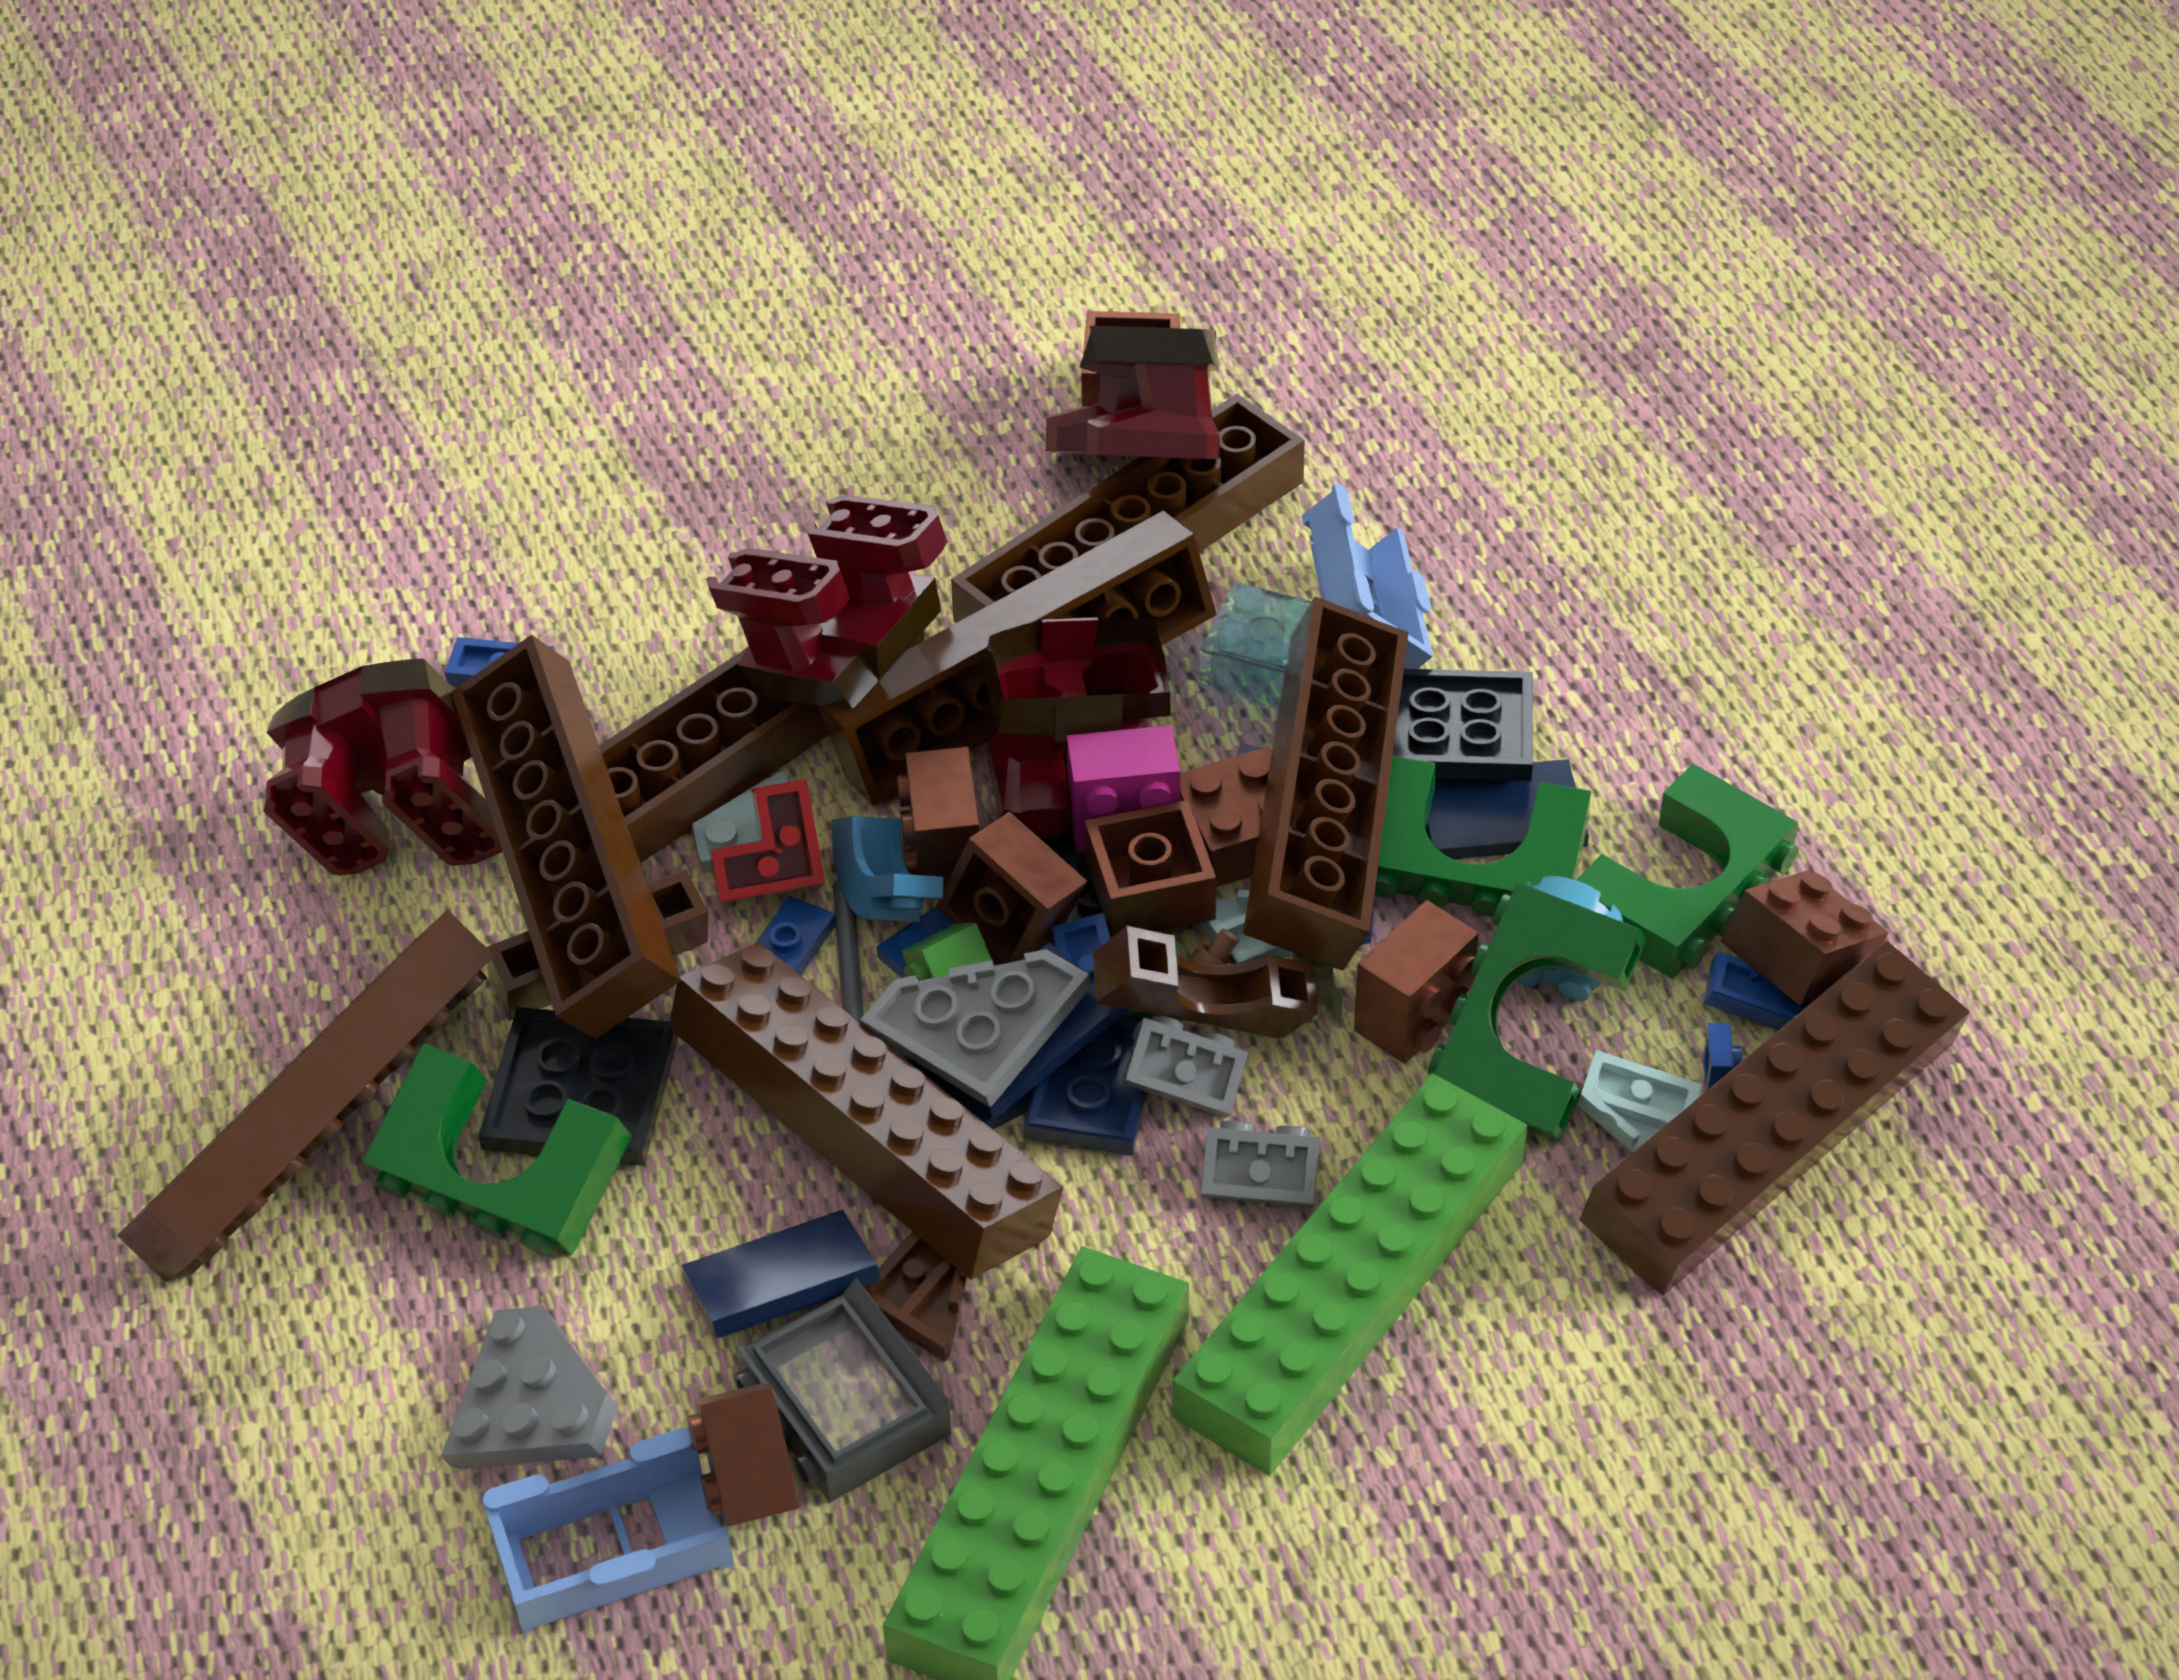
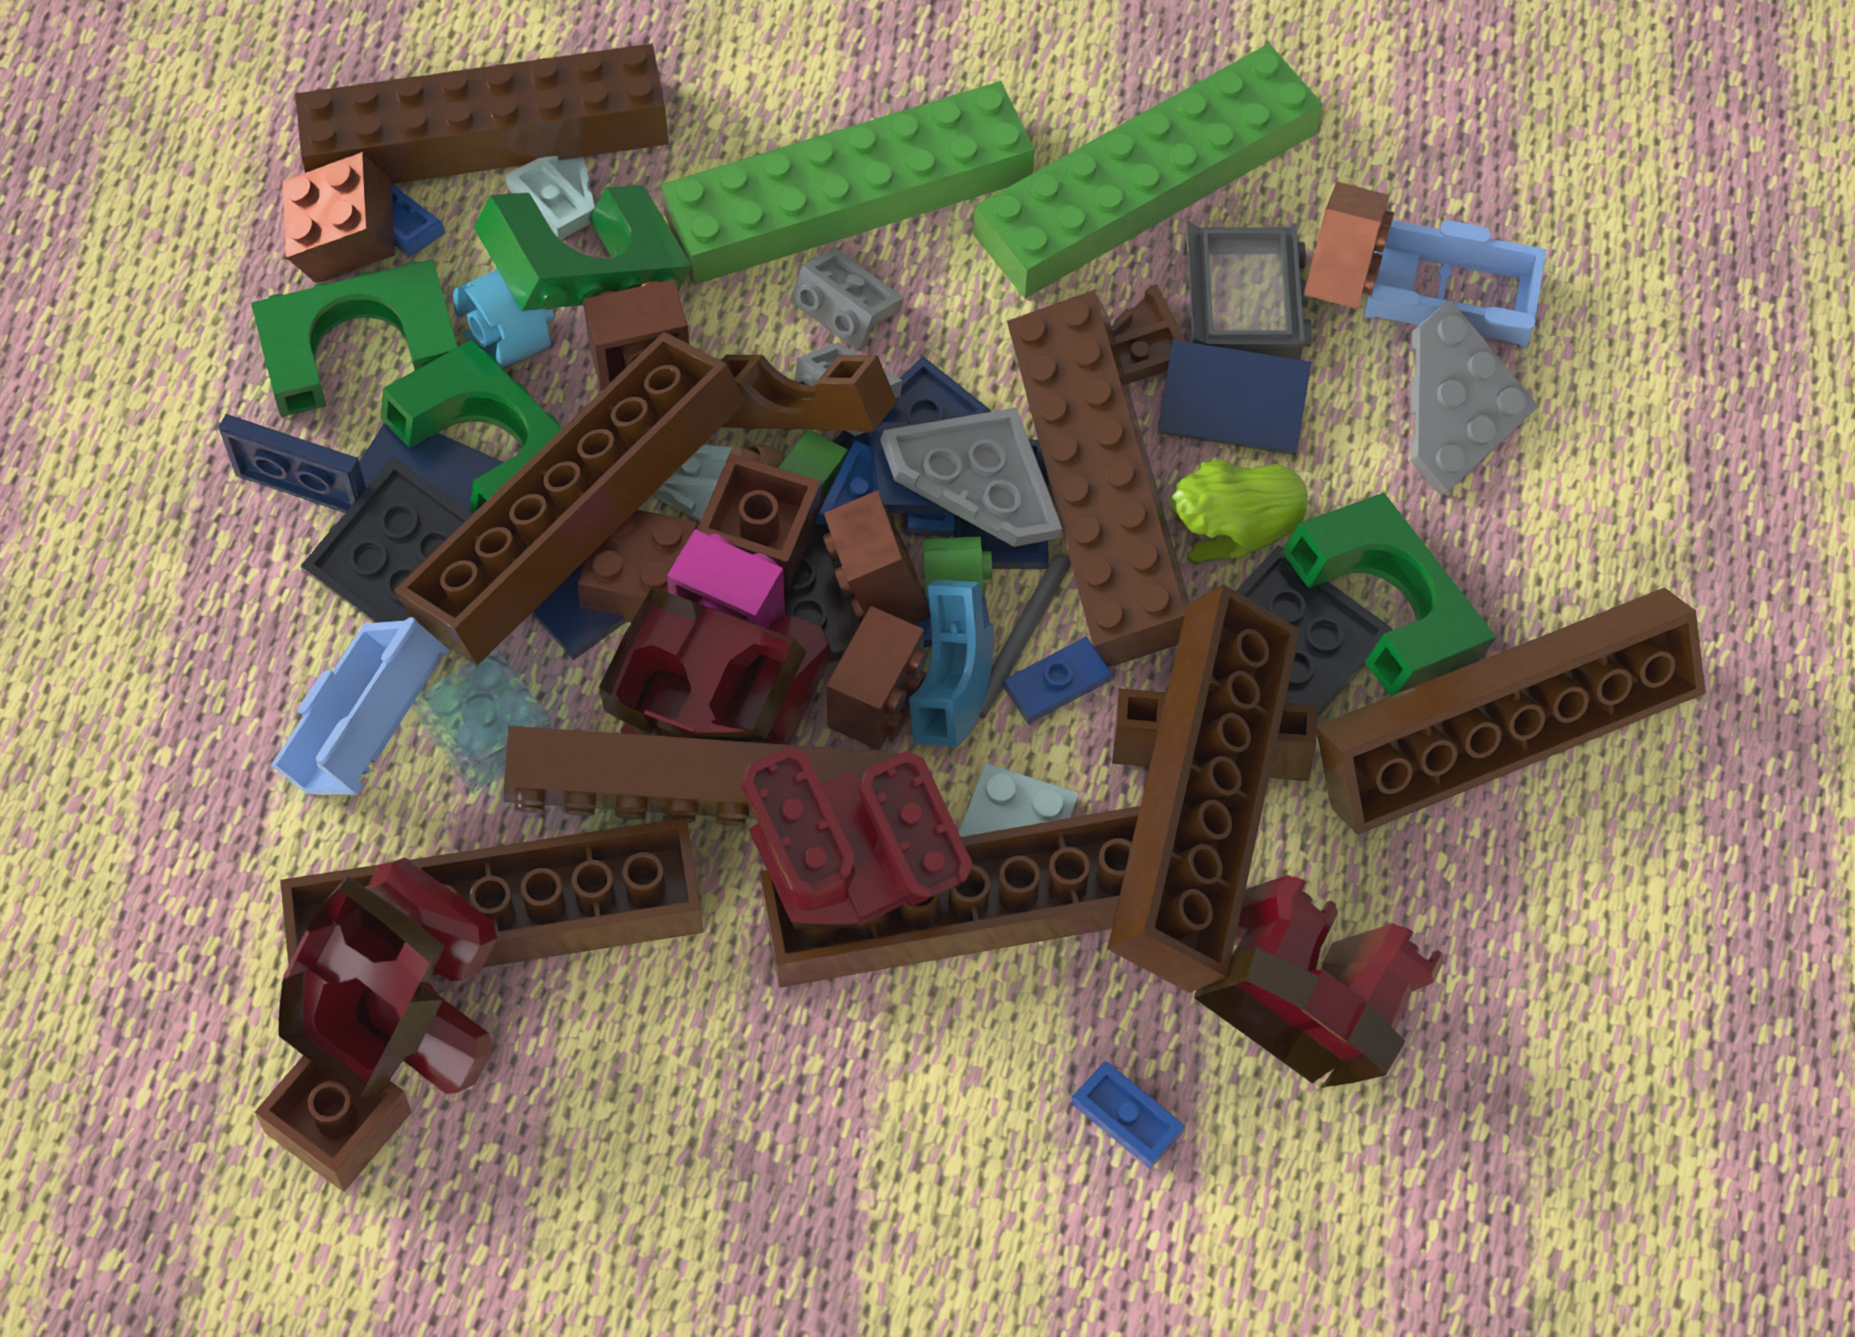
camera: 150 degrees left, 15 degrees up
(705, 1149) = (1243, 503): none -> lime hair
(783, 857) = (1029, 734): red brick -> none
(1613, 717) = (292, 464): none -> dark blue tile
(1718, 1053) = (476, 185): blue plate -> none

